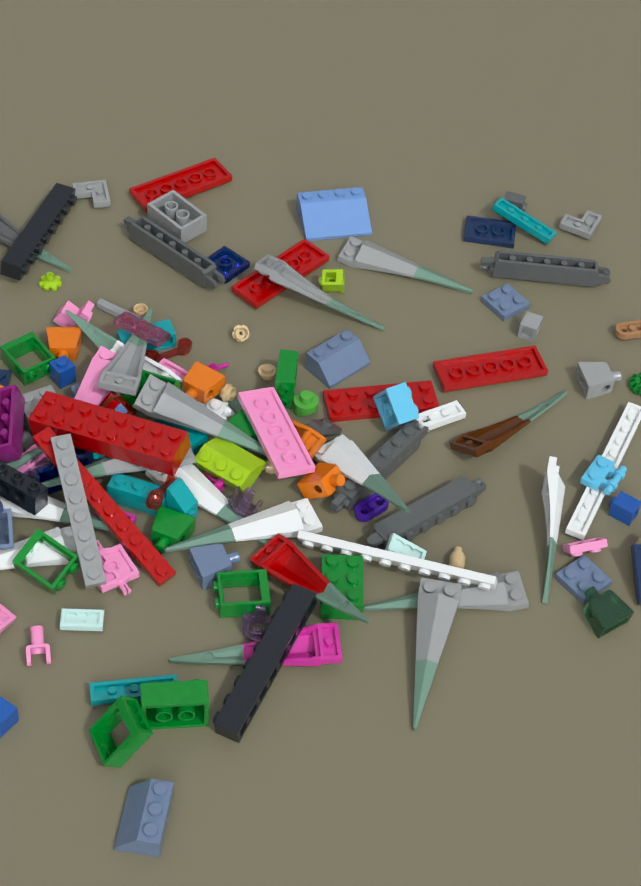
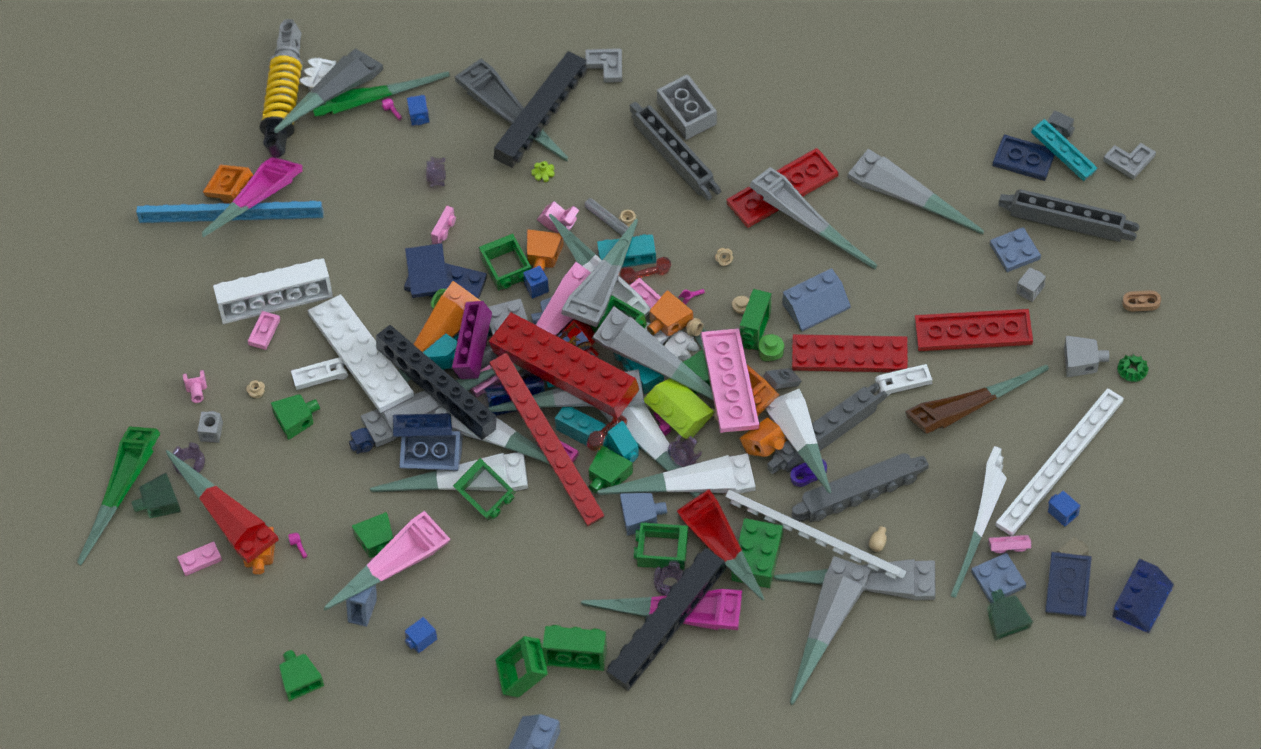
camera: 20 degrees right, 10 degrees up
(37, 645) = (464, 571): bright pink piece -> none
(78, 511) = (520, 443): light grey plate -> none
(82, 619) = (509, 551): light aqua plate -> none
(109, 691) = (535, 625): teal plate -> none
(117, 568) = (545, 502): bright pink plate -> none
(142, 329) = (620, 246): clear pink plate -> none
(185, 182) = (702, 60): red plate -> none
(229, 263) = (728, 169): clear blue plate -> none
(332, 280) = (829, 199): lime brick -> none
(333, 214) = (857, 118): medium blue slope -> none
(396, 406) = (858, 367): medium azure brick -> none
(402, 546) = (827, 524): light aqua plate -> none
(598, 472) = (1049, 464): medium azure plate -> none

